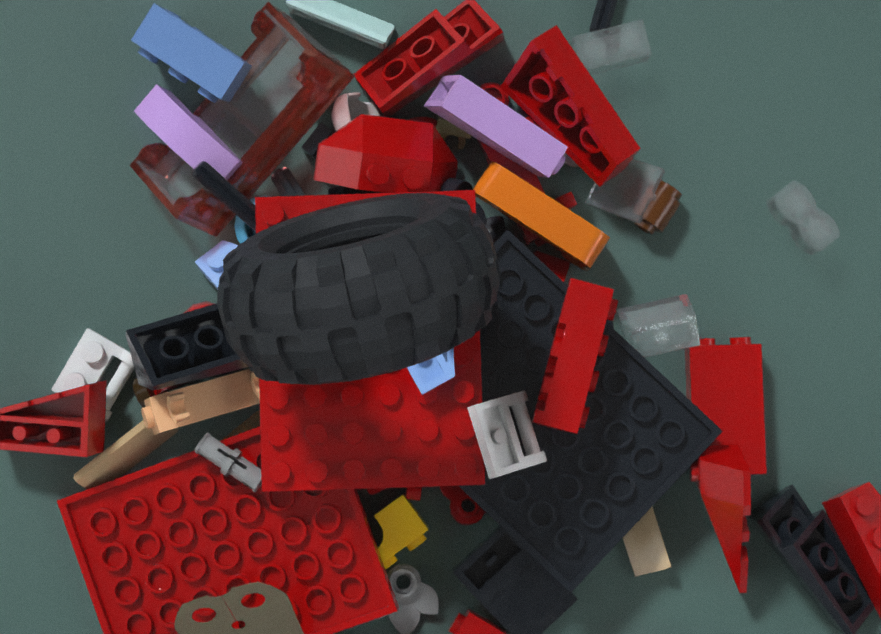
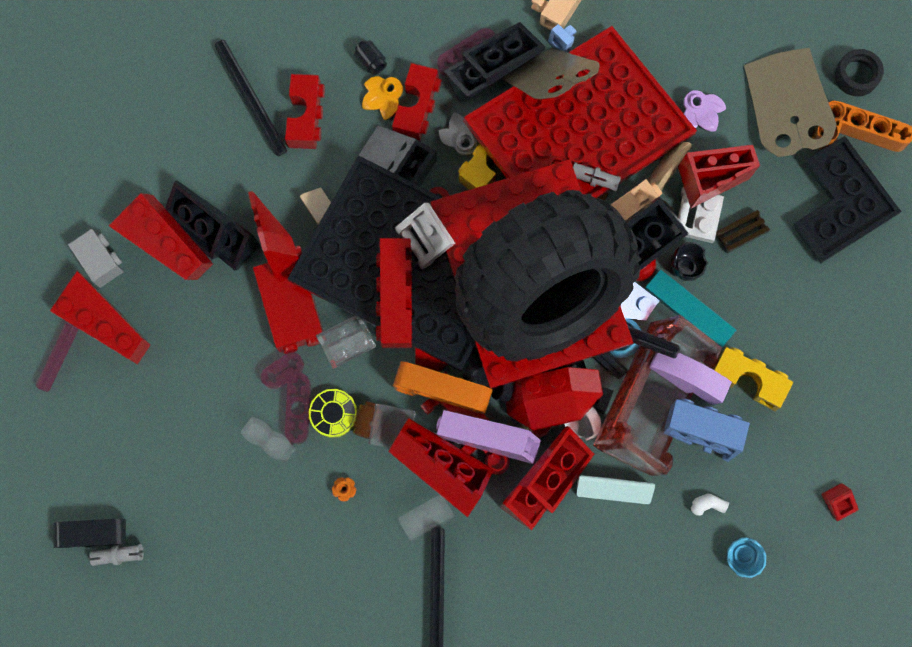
camera: 175 degrees right, 10 degrees down
(11, 337) = (759, 222): none -> dark brown tile
(36, 525) = (706, 112): none -> lavender plate
(79, 92) = (771, 385): none -> yellow arch
(133, 303) = (689, 261): none -> black hair
(154, 238) = (691, 308): none -> teal tile
(702, 233) = (332, 413): none -> tile
(715, 132) = (350, 489): none -> orange plate
(734, 277) = (291, 426): none -> clear pink beam
(755, 306) = (280, 365): none -> clear pink beam

